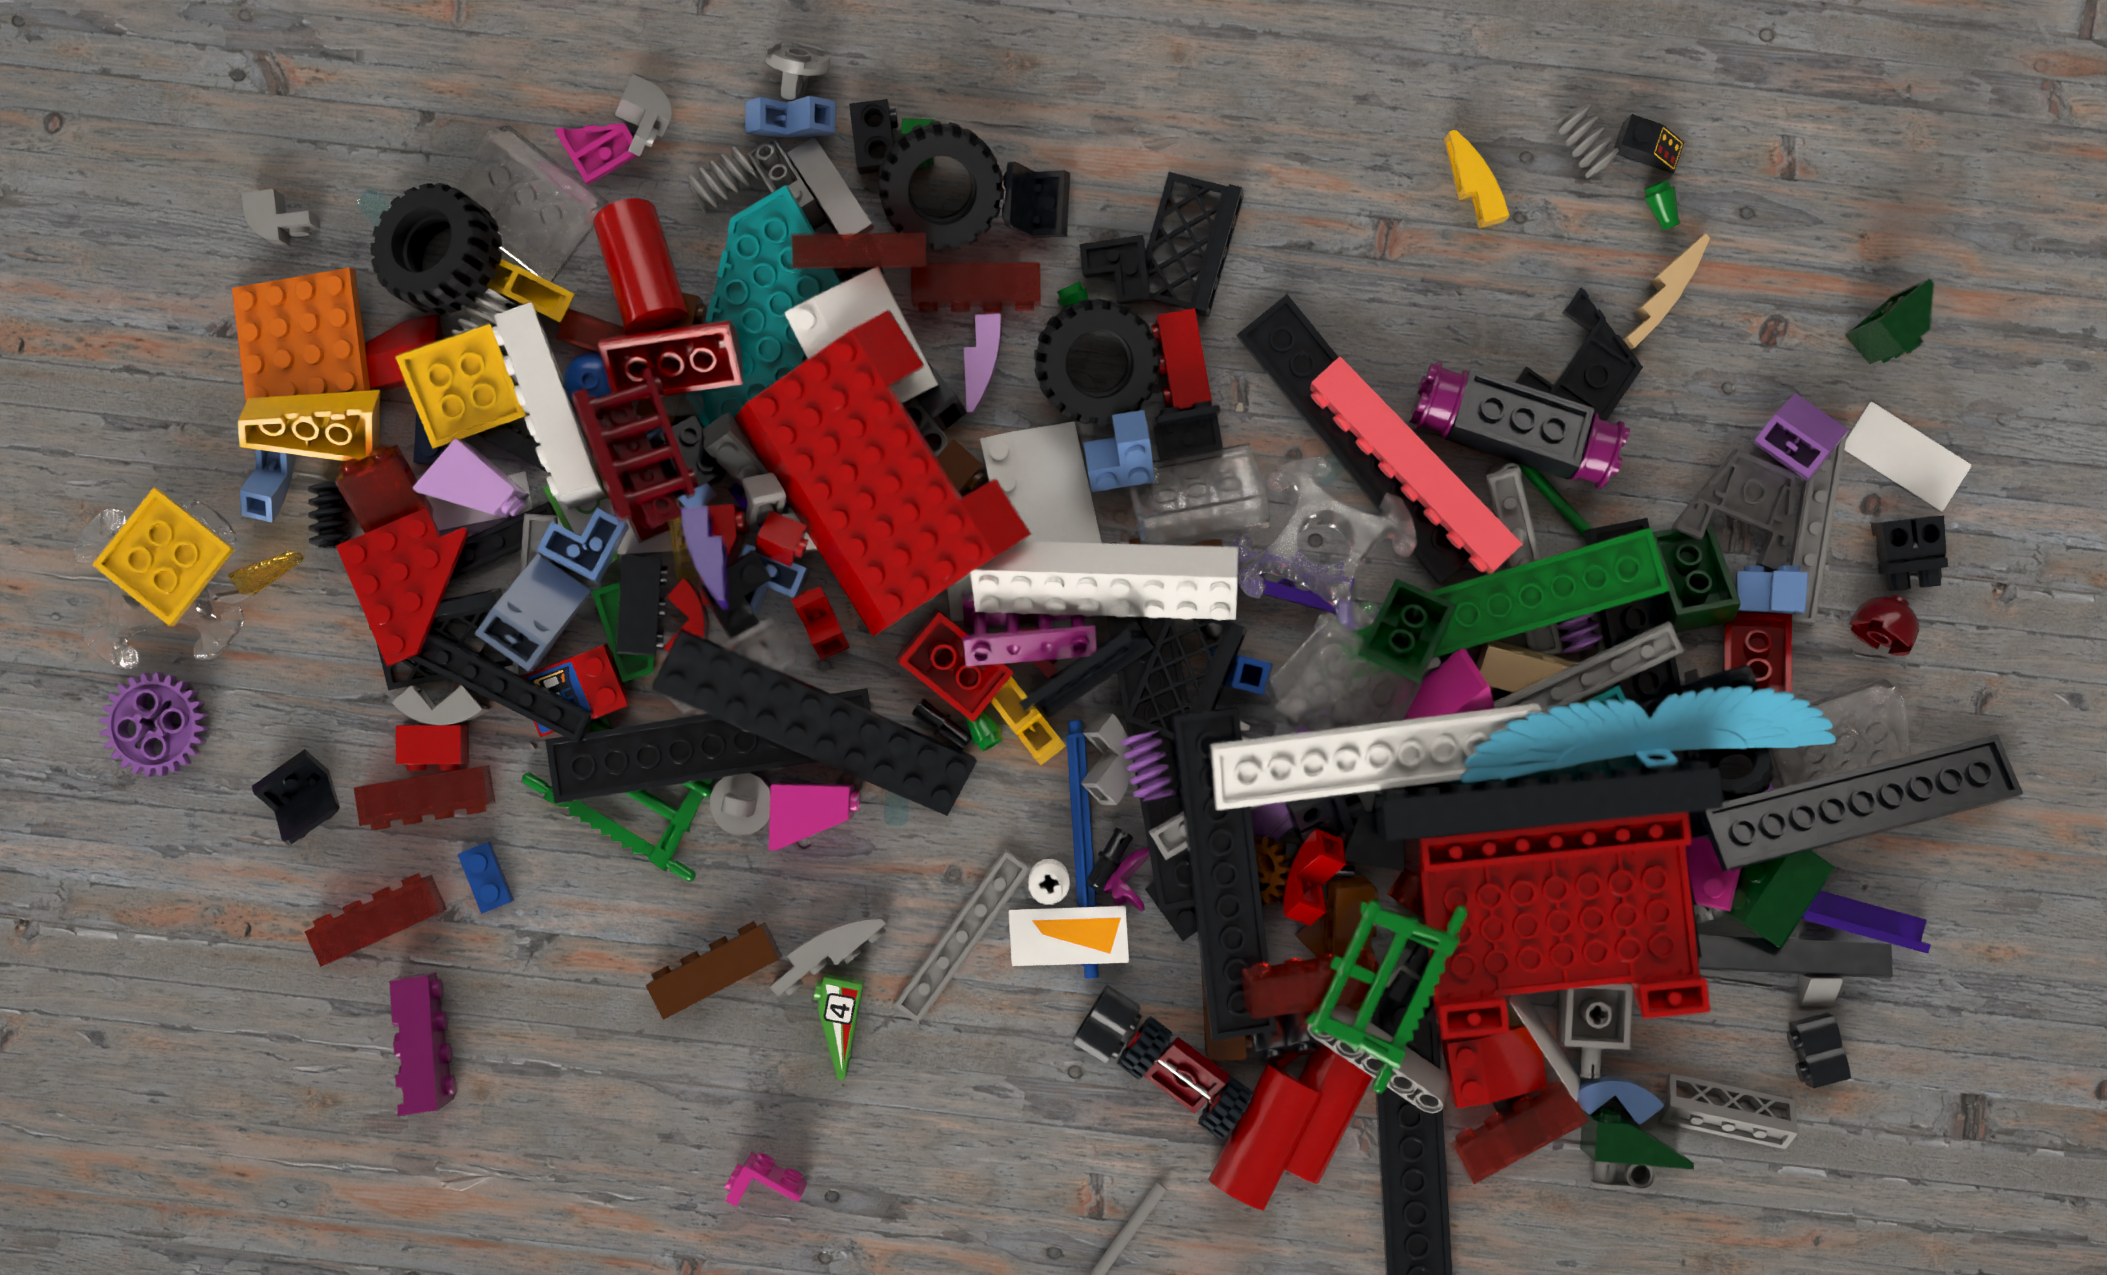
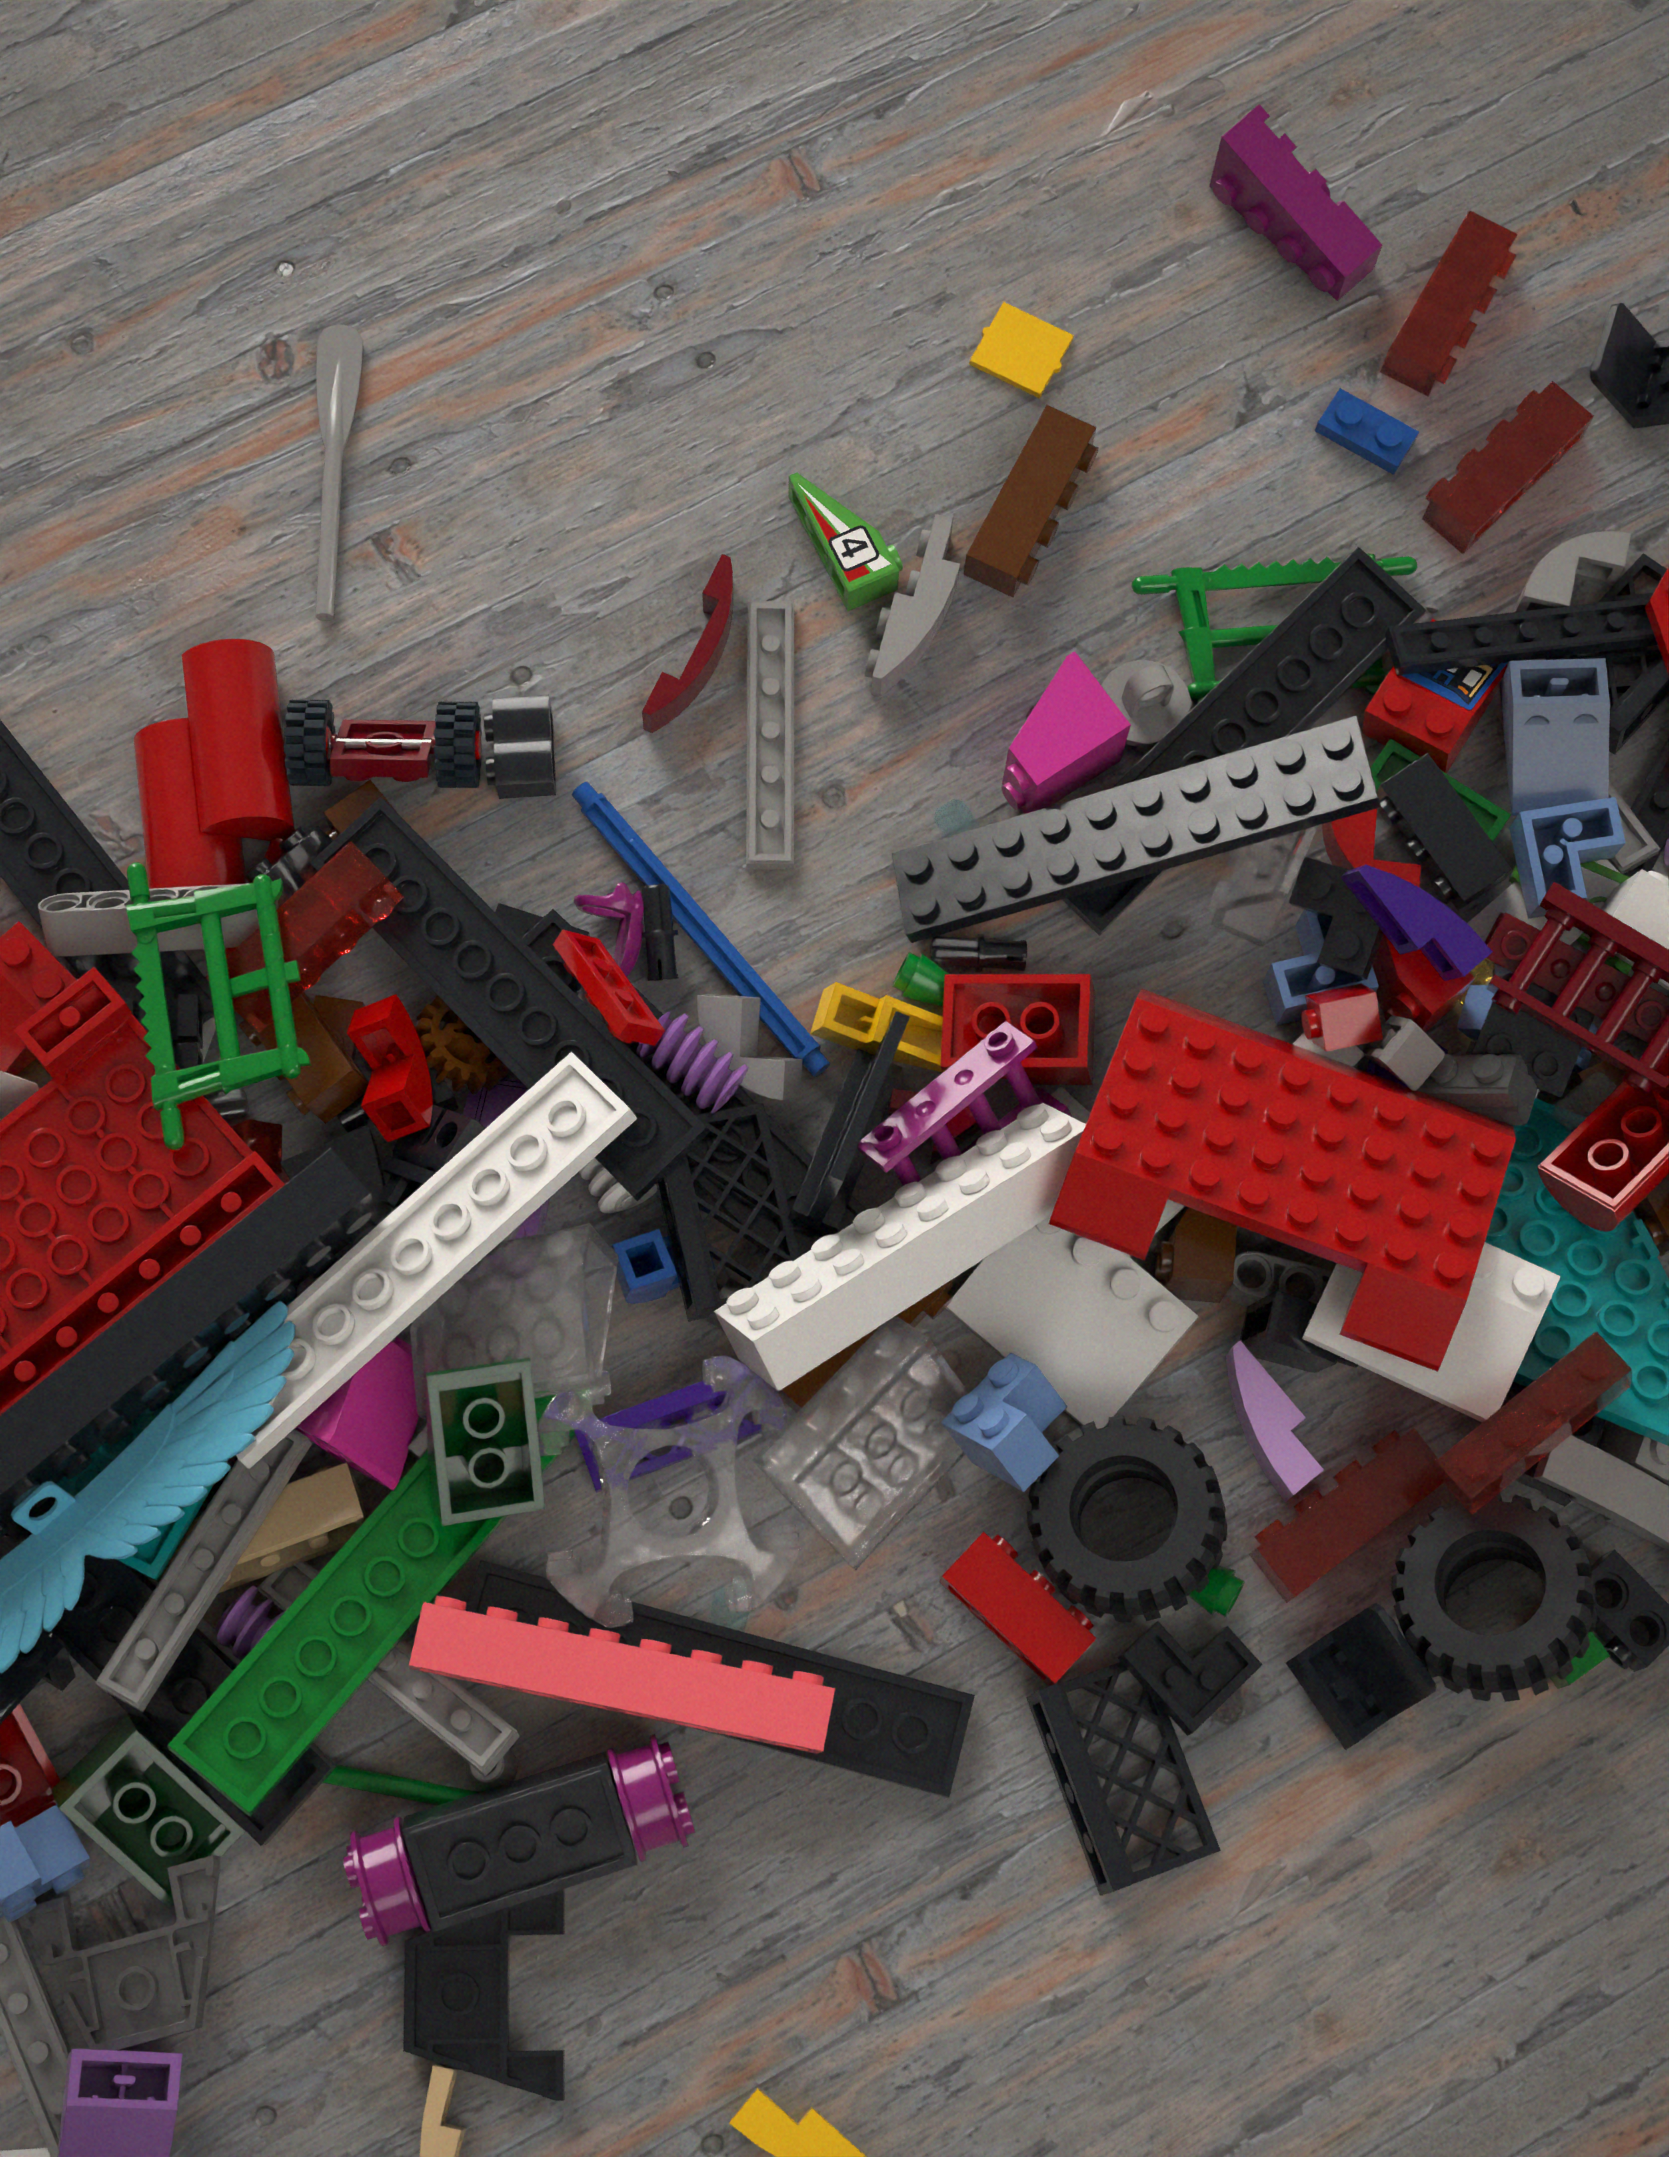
camera: 145 degrees right, 15 degrees down
(432, 745) = (1543, 522): red brick -> none
(645, 1071) = (1021, 350): none -> yellow piece
(762, 1168) = (796, 321): dark pink bracket -> none
(820, 622) = (1214, 967): red brick -> none
(1004, 996) = (674, 695): none -> dark red slope
(1040, 890) = (714, 852): white piece -> none
(1068, 936) = (642, 814): white sticker -> none
(1168, 836) = (608, 988): none -> red plate
(1187, 431) = (942, 1517): black bracket -> none

